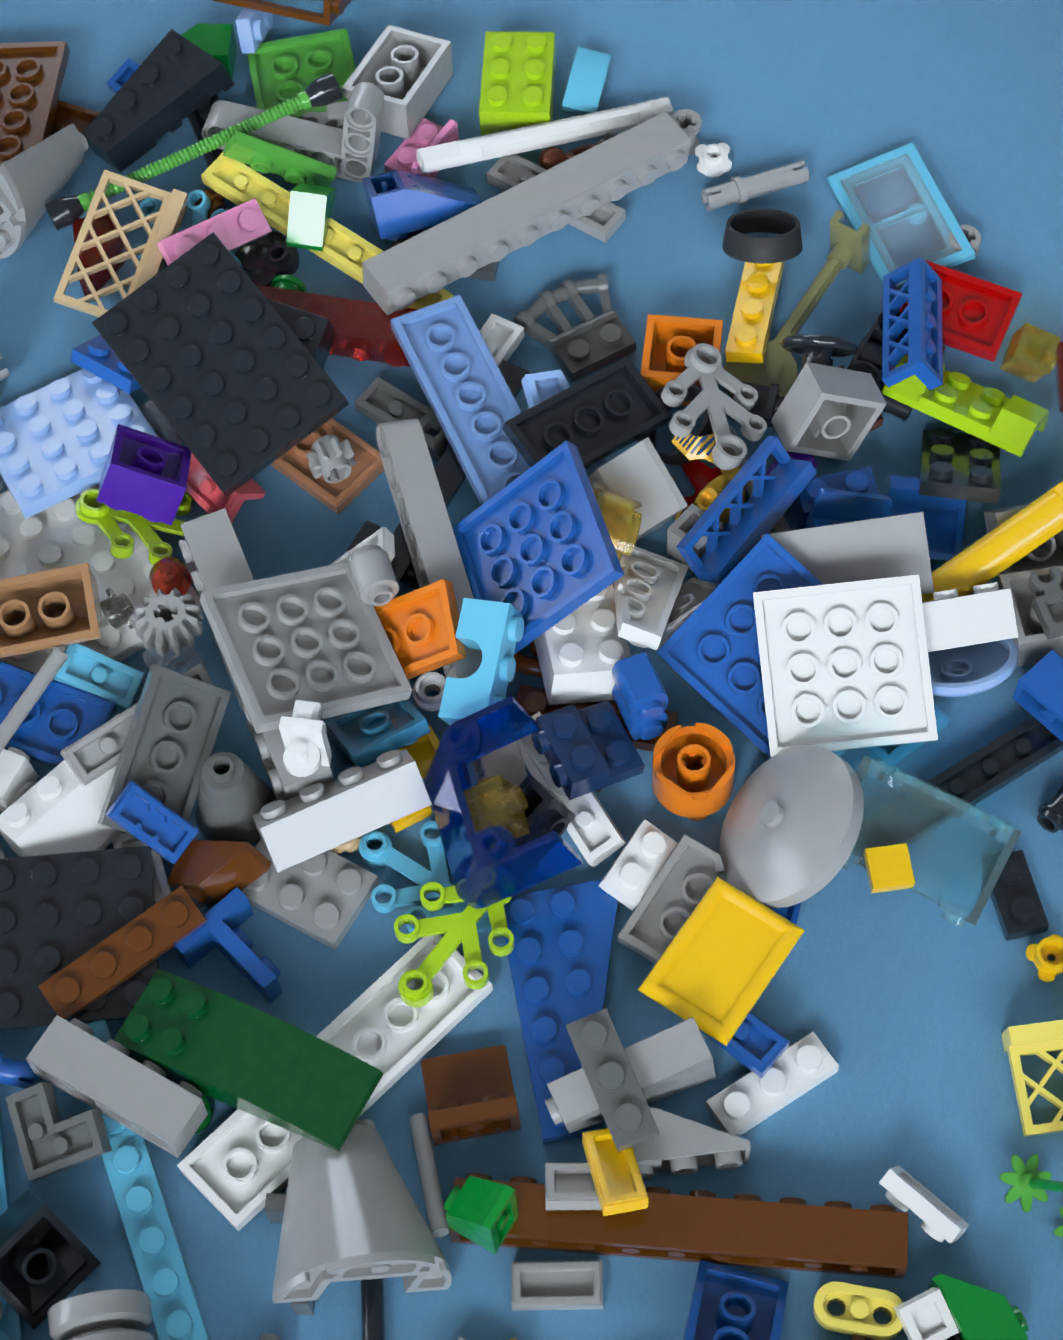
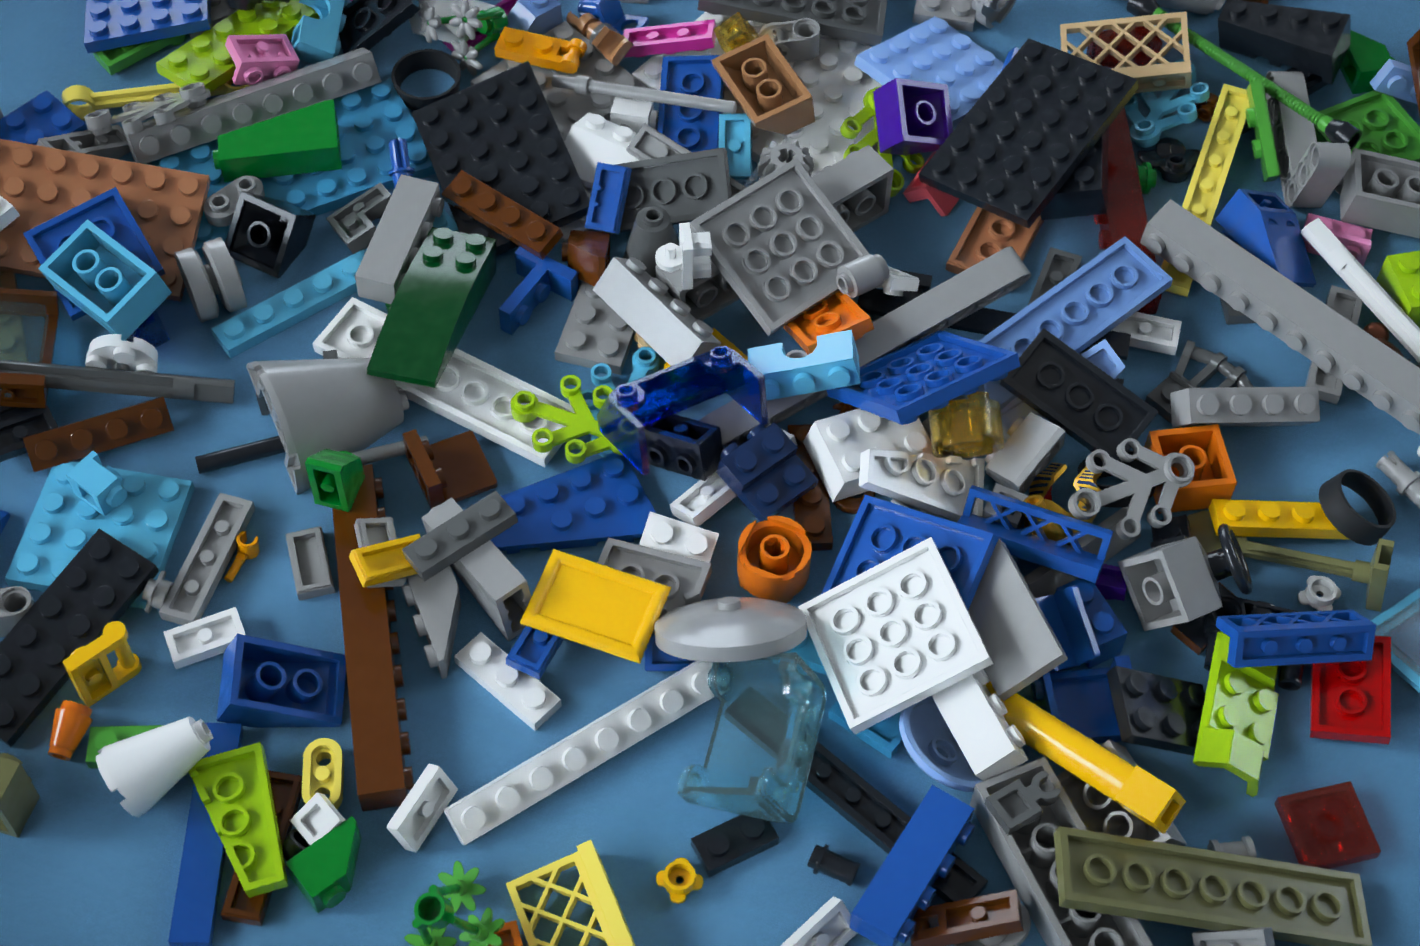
camera: 70 degrees right, 5 degrees down
(118, 609) = (792, 134): clear smoke plate -> none
(170, 574) = (827, 157): clear red tile -> none
(233, 228) = (1168, 109): bright pink plate -> none
(309, 216) = (1217, 162): slope -> none
(331, 459) = (981, 238): light grey gear -> none
(376, 730) = (740, 329): dark azure plate -> none
(497, 803) = (676, 408): clear yellow brick -> none
(627, 289) = (1245, 406): none -> light grey brick
(640, 696) = (819, 492): blue brick -> none
(840, 295) = (1323, 586): none -> white plate
(889, 868) = (719, 721): yellow tile -> none
(890, 1032) = (579, 752): none -> white plate
(1031, 353) = (1321, 757): clear yellow brick -> none

